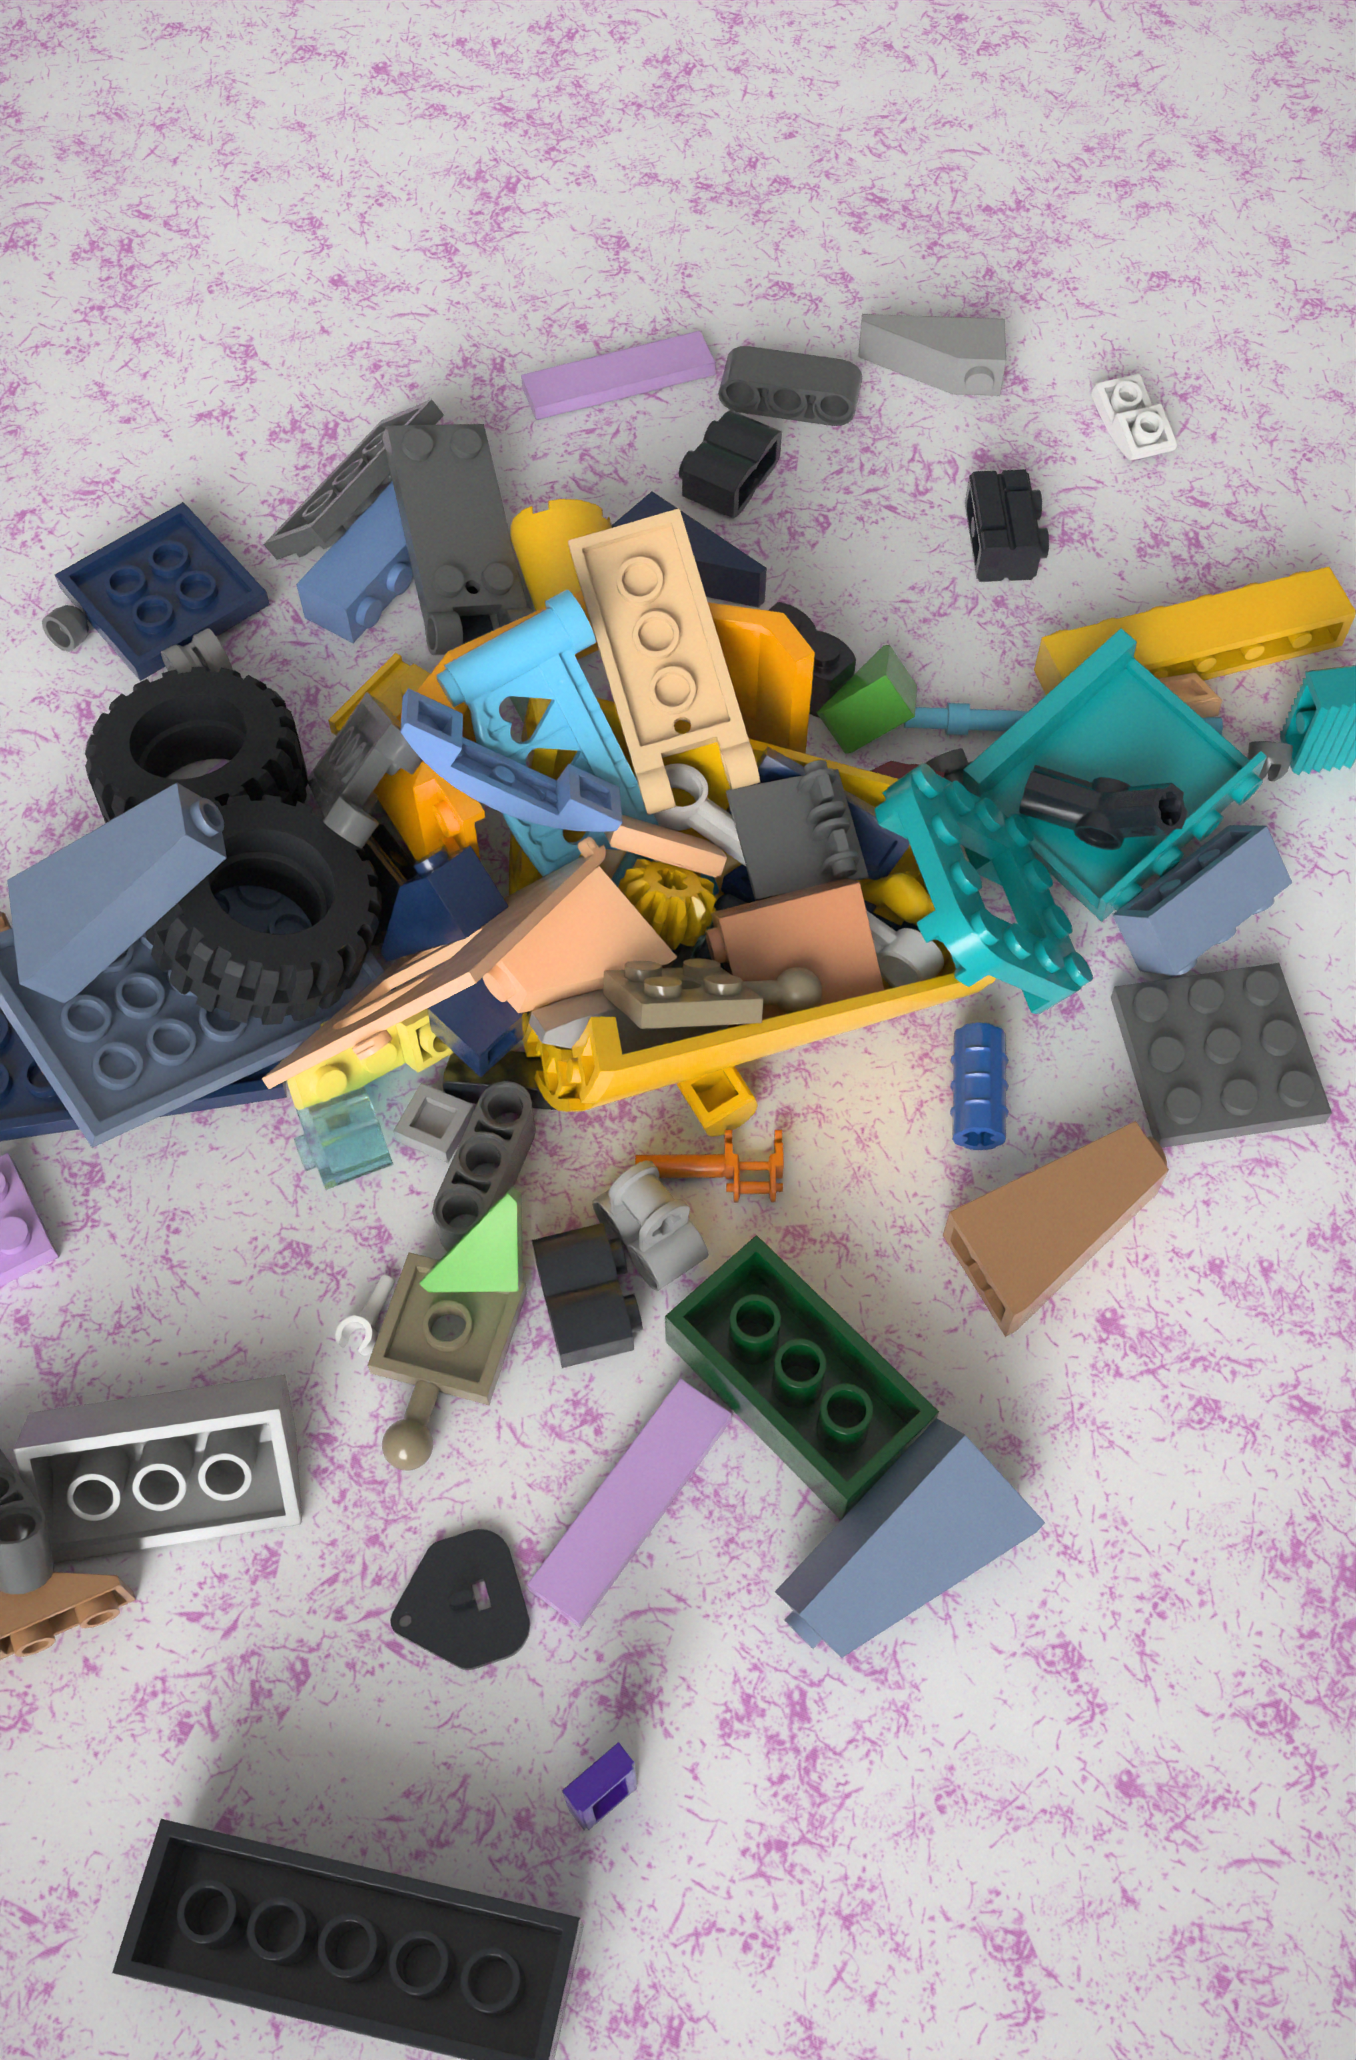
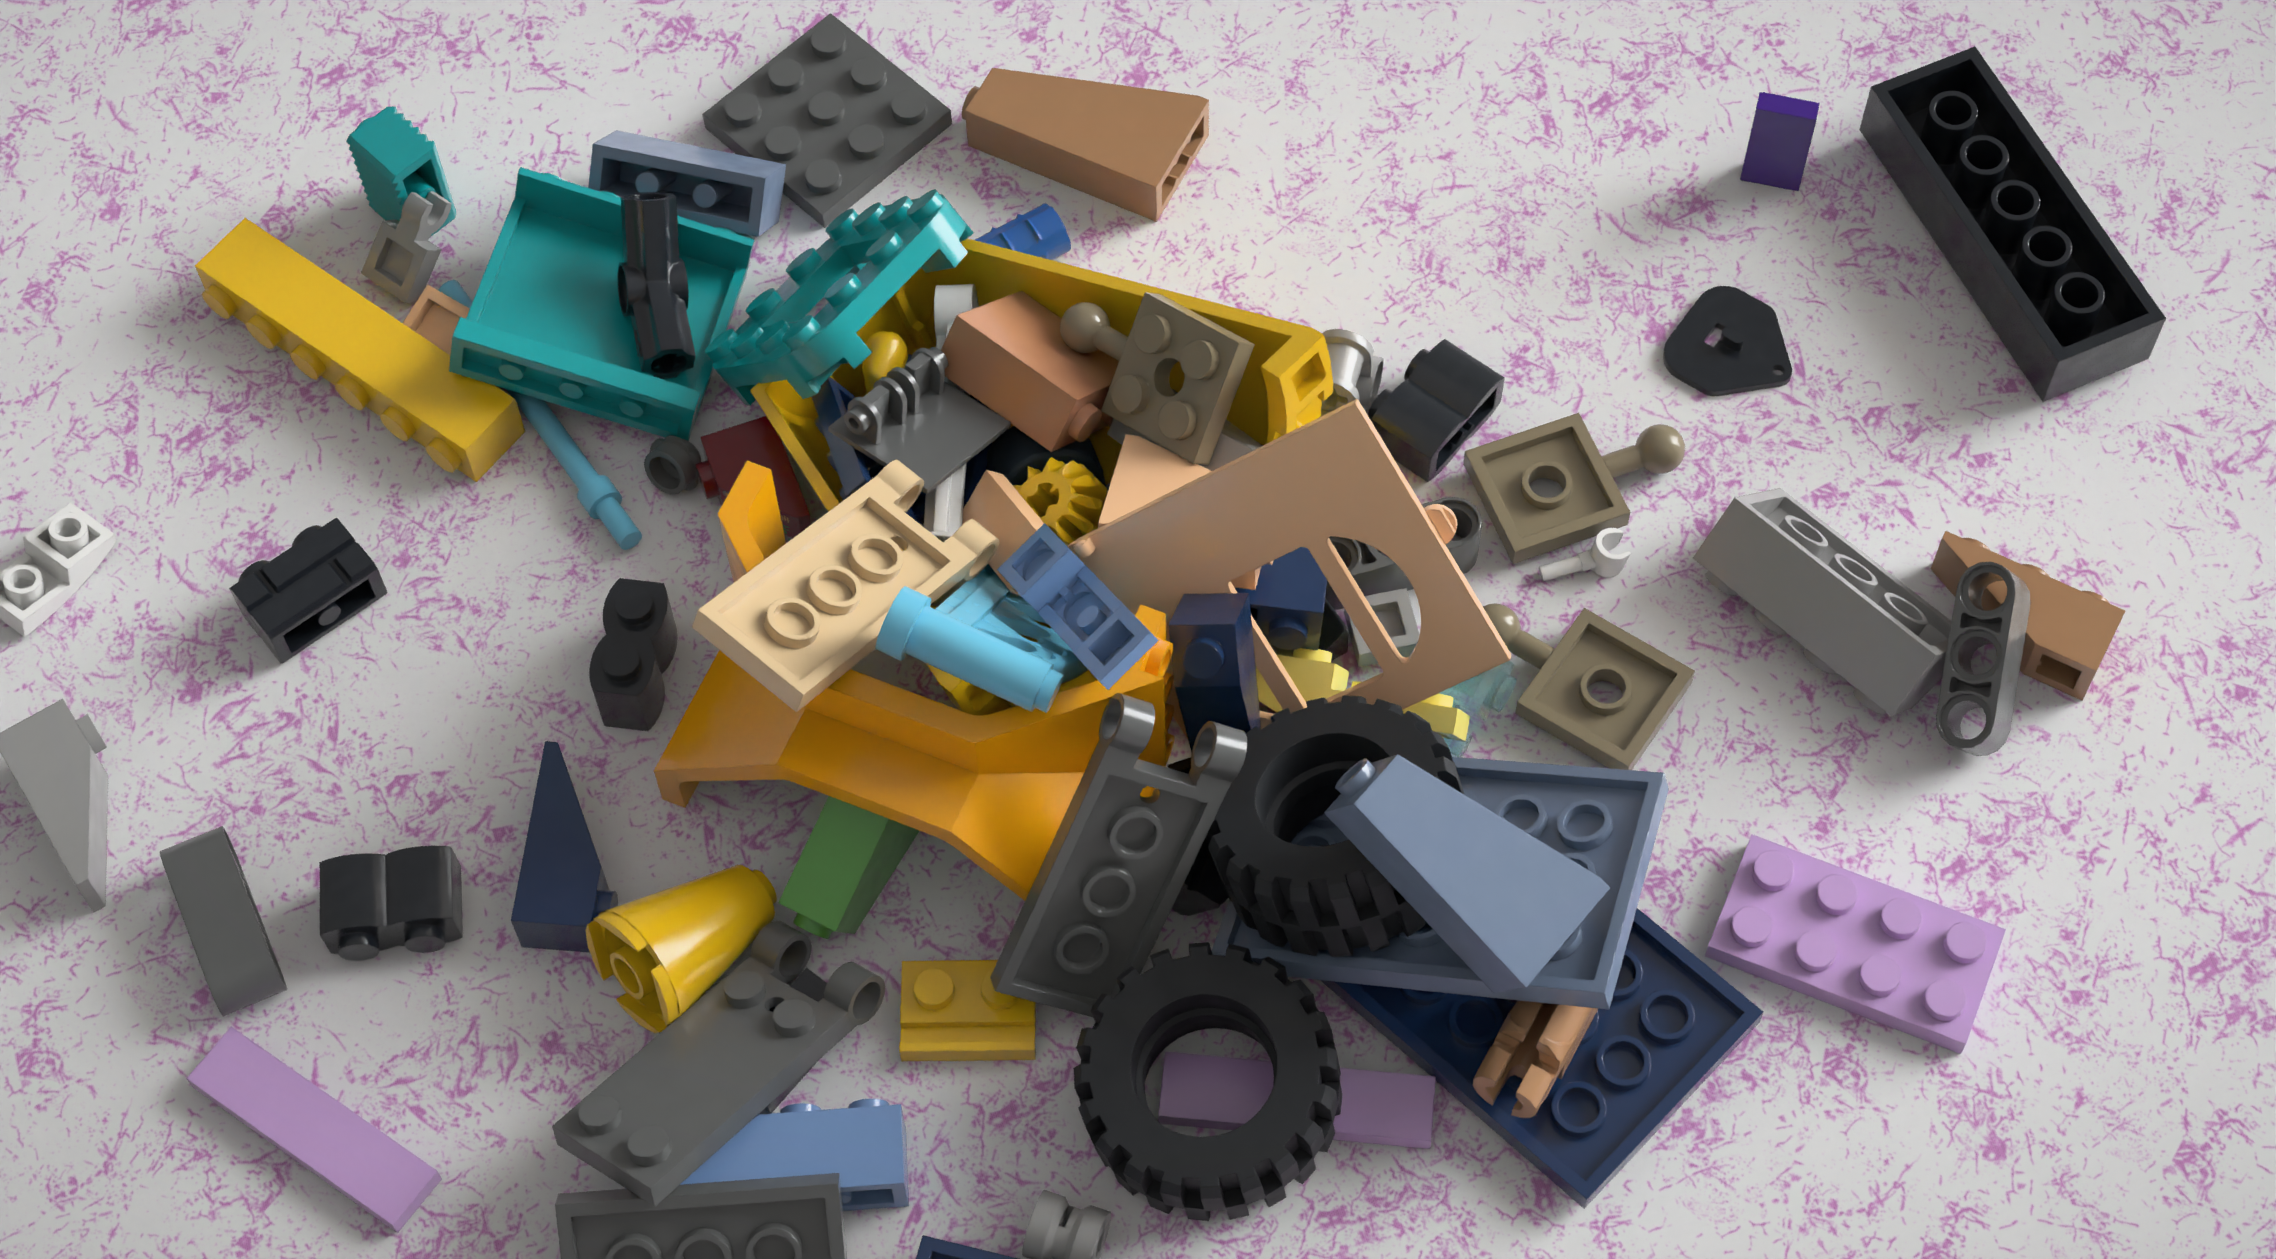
camera: 125 degrees left, 0 degrees up
(287, 1248) = (1591, 653): none -> dark tan plate
(487, 1254) = (1483, 464): slope -> none
(629, 1503) = (1560, 283): lavender tile -> none
(798, 1375) = (1377, 214): dark green brick -> none
(871, 702) = (644, 551): bright green slope -> none
(906, 1542) = (1448, 76): sand blue slope -> none
(1265, 705) = (401, 253): none -> light grey plate
(1277, 761) = (465, 229): dark grey hinge -> none

